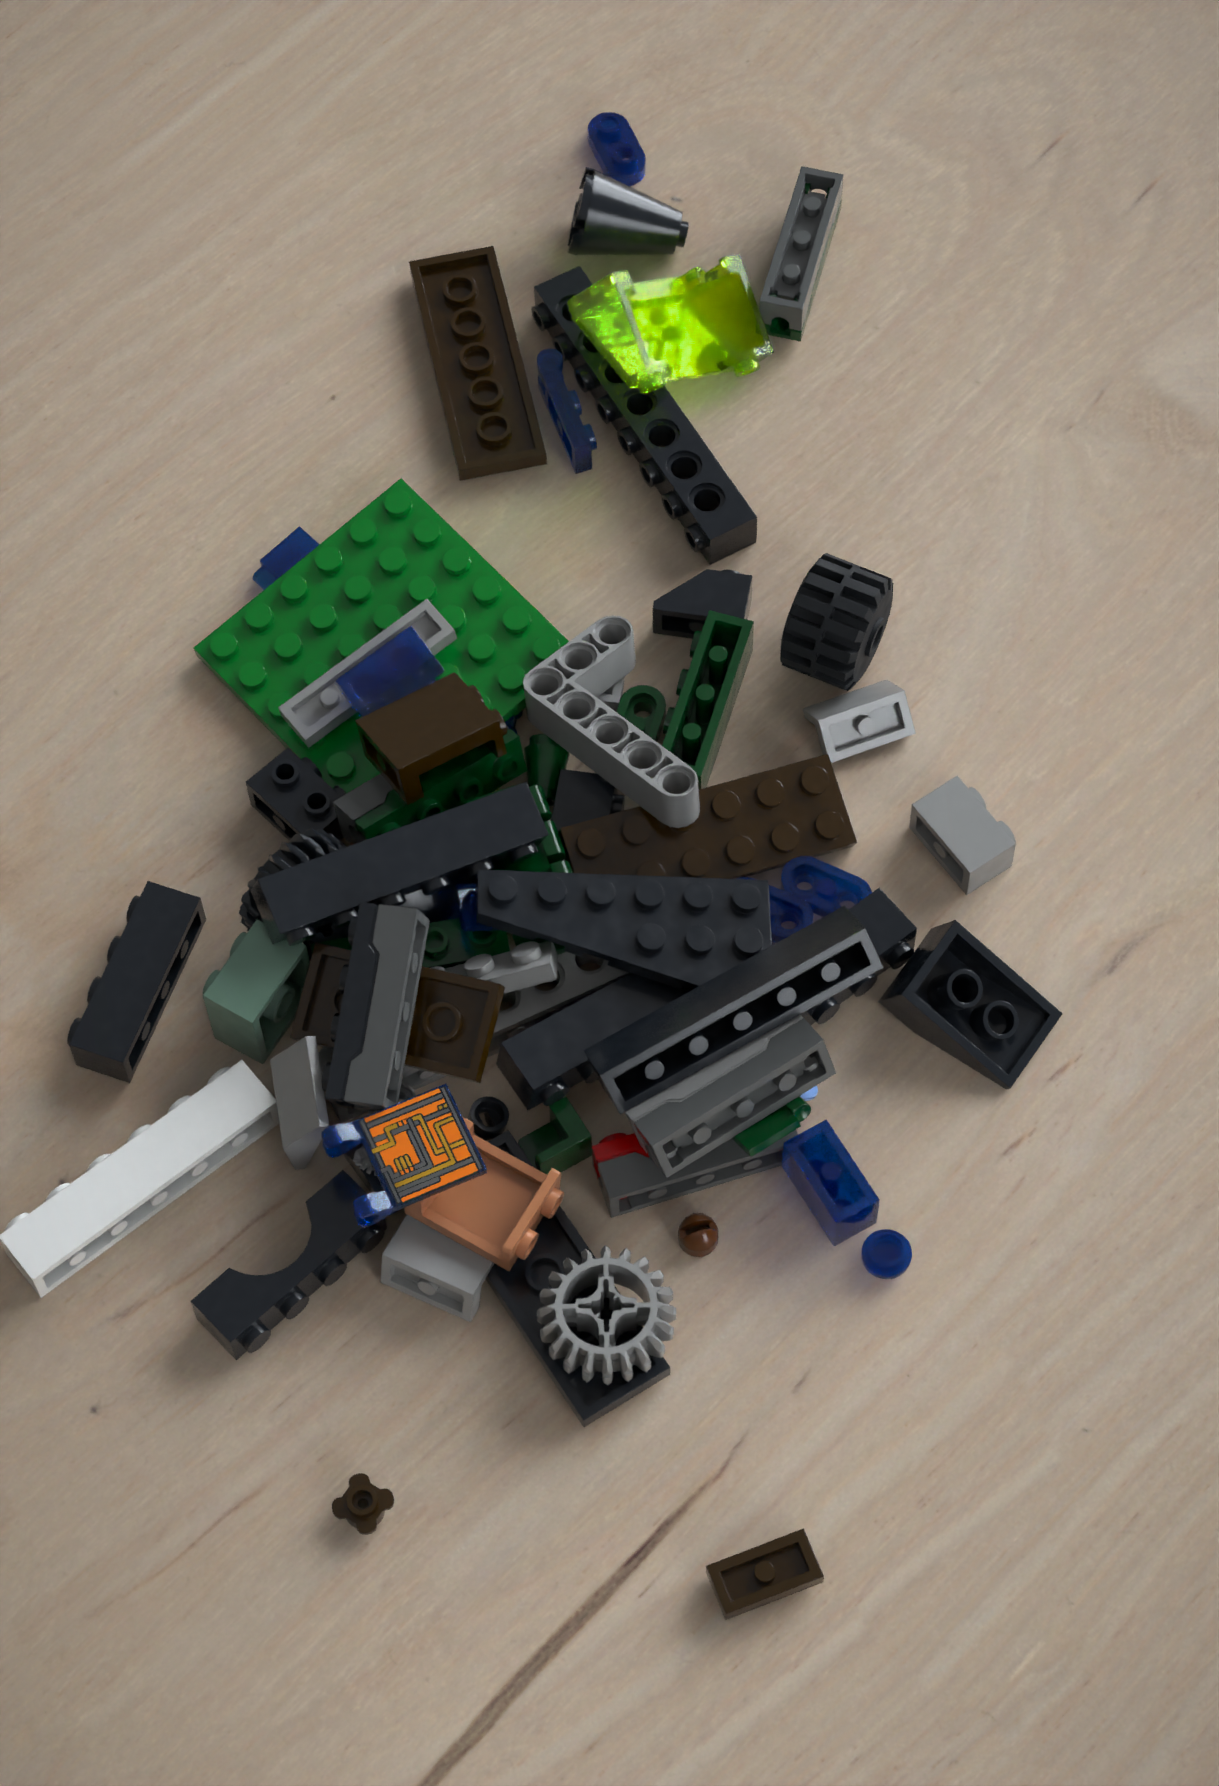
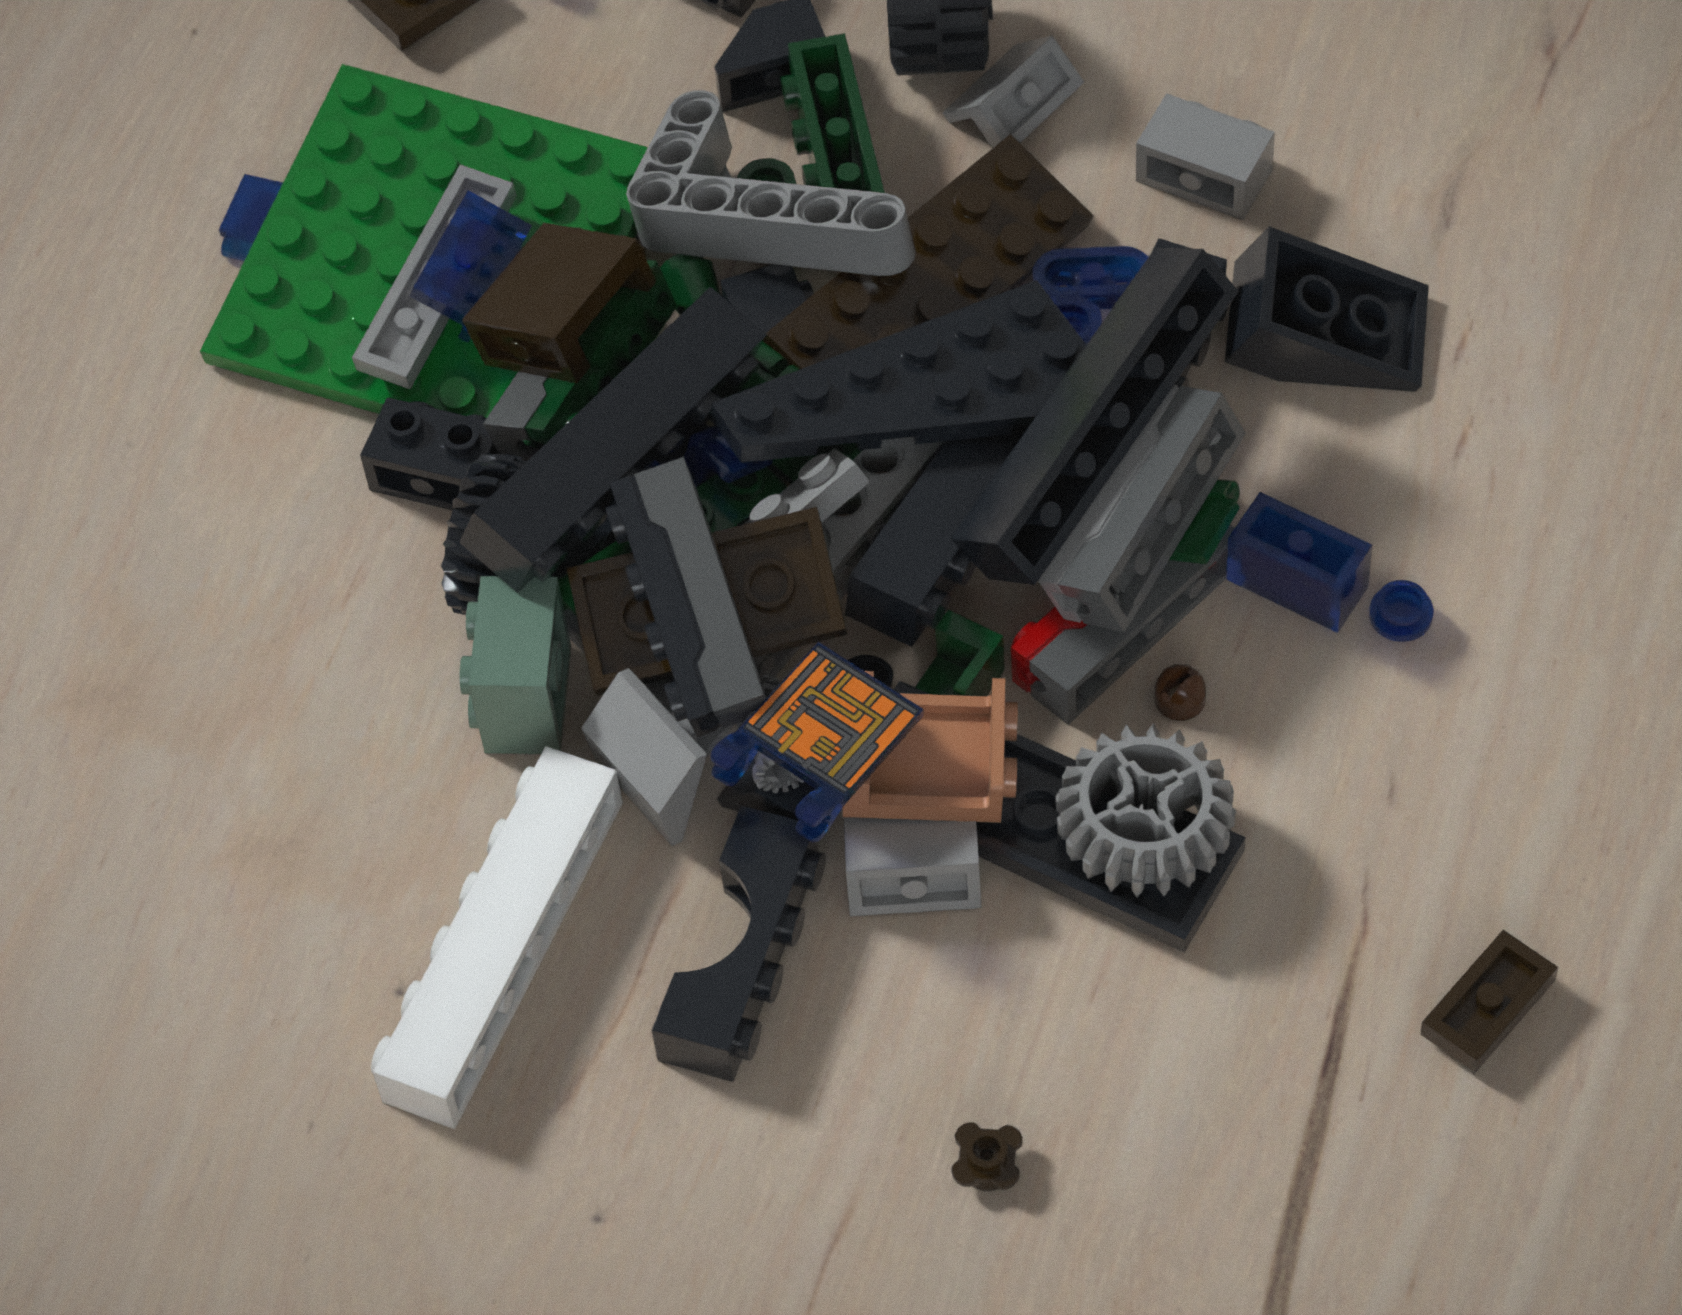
camera: 25 degrees left, 5 degrees down
(136, 981) = (359, 730): black brick -> none

